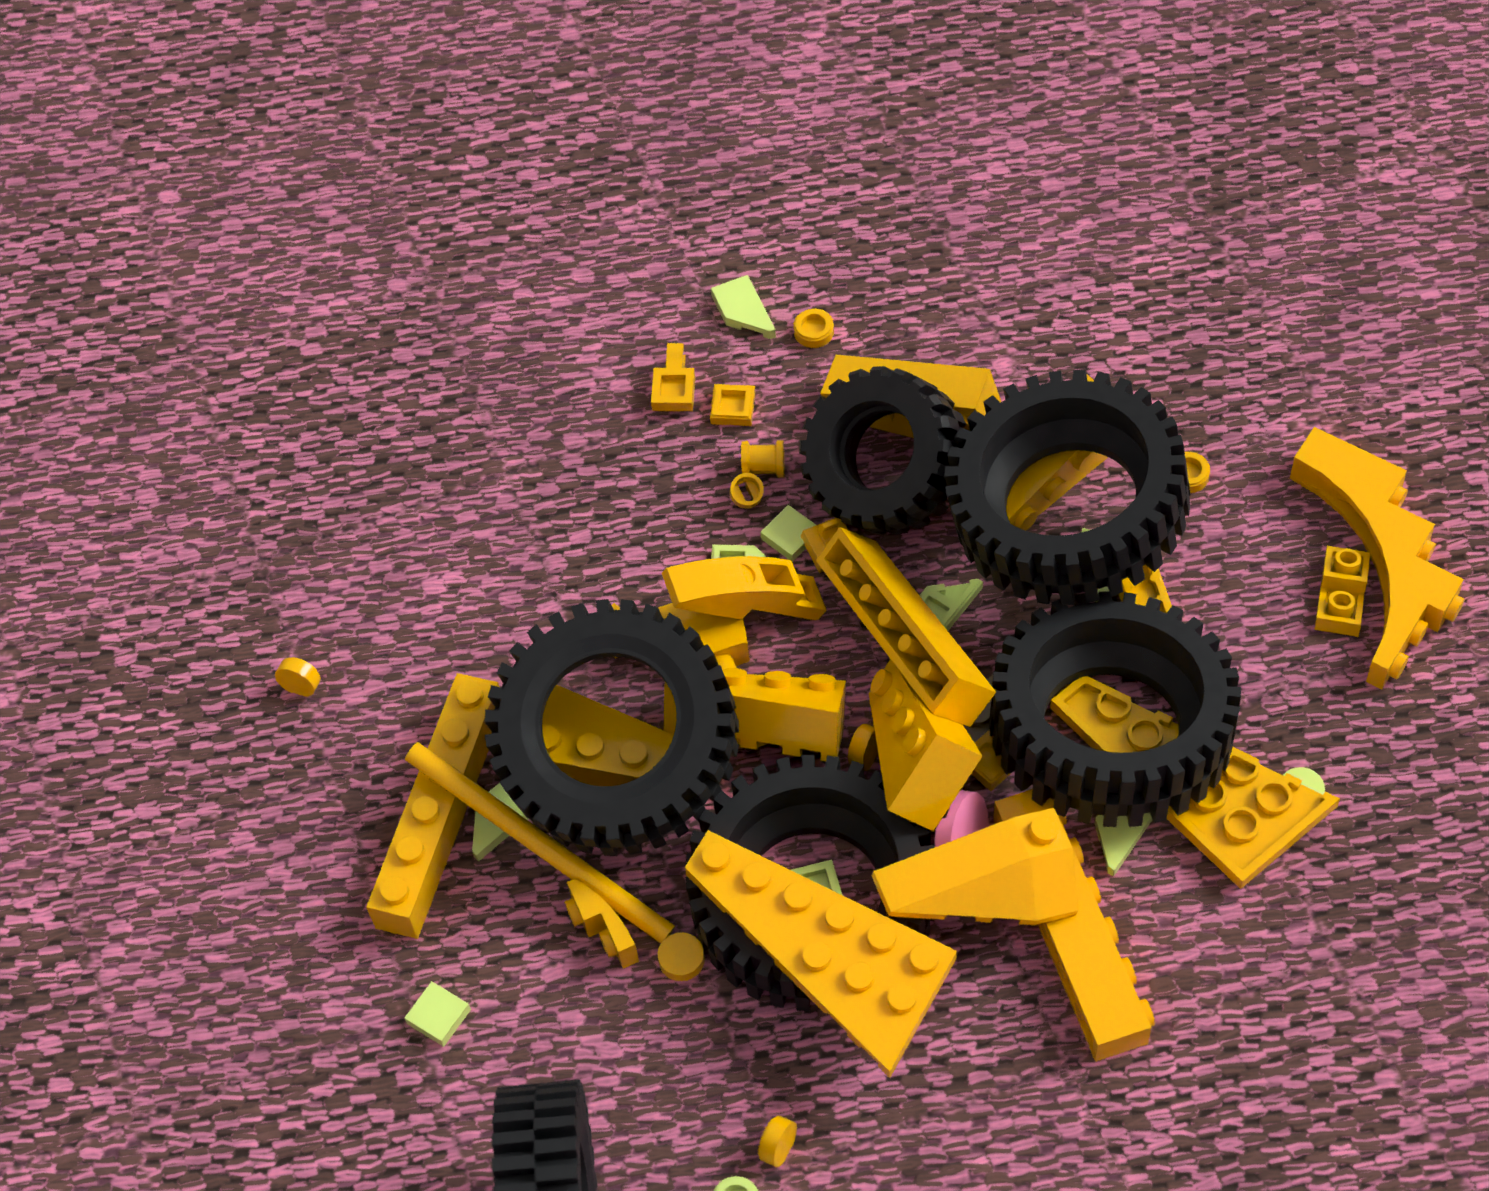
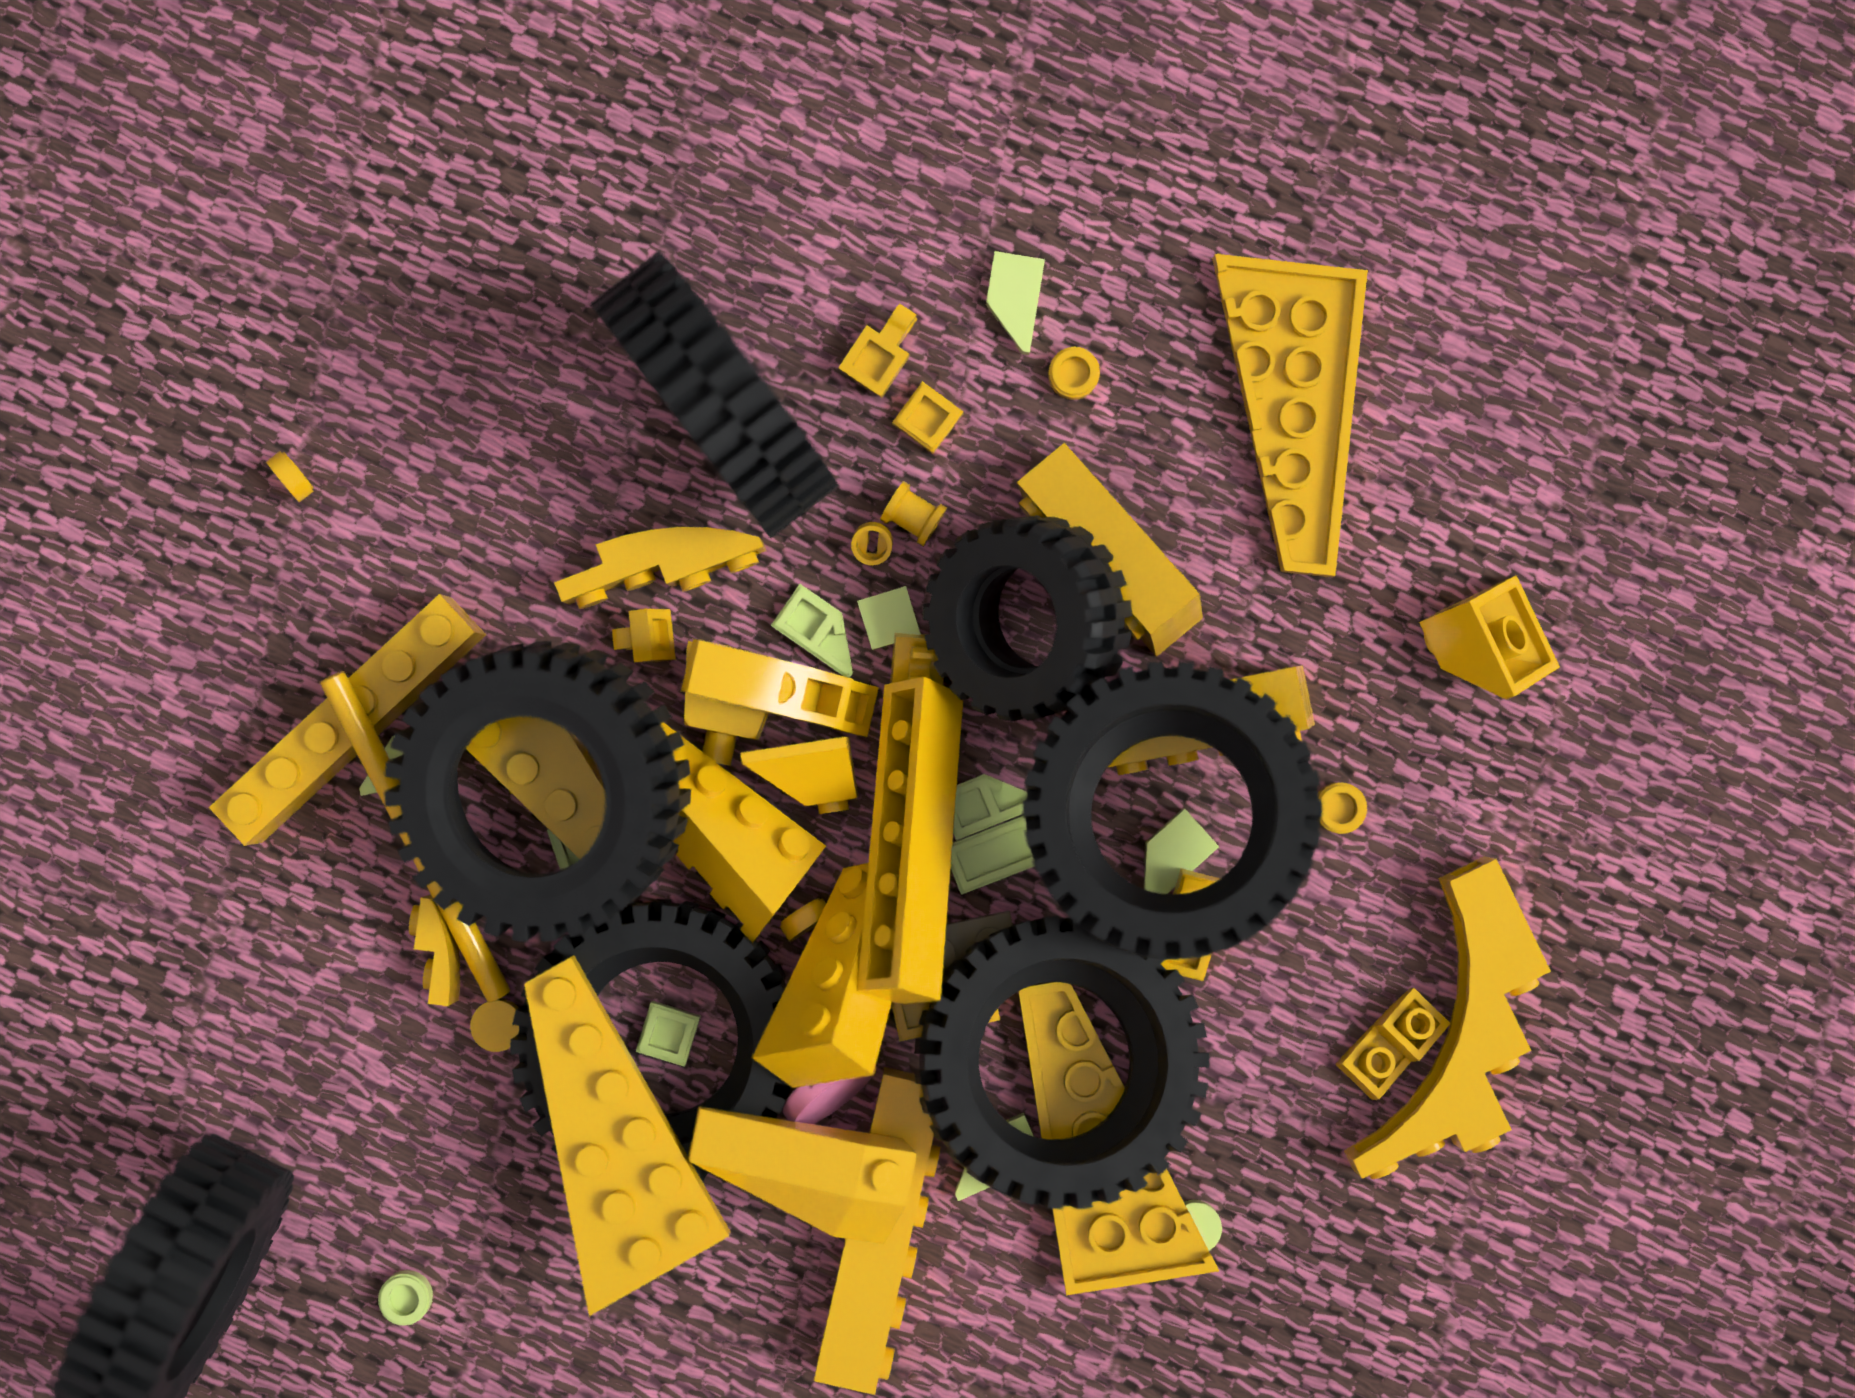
camera: 20 degrees right, 30 degrees up
(437, 1013) = (235, 938): yellowish green tile -> none
(556, 453) = (715, 393): none -> black tyre
(611, 569) = (680, 553): none -> yellow slope
(777, 1141) = (472, 1271): yellow tile -> none
(796, 637) = (809, 772): none -> yellow slope
(963, 247) = (1297, 372): none -> yellow wing
(980, 623) = (991, 855): none -> yellowish green tile
(1200, 314) = (1491, 640): none -> yellow slope

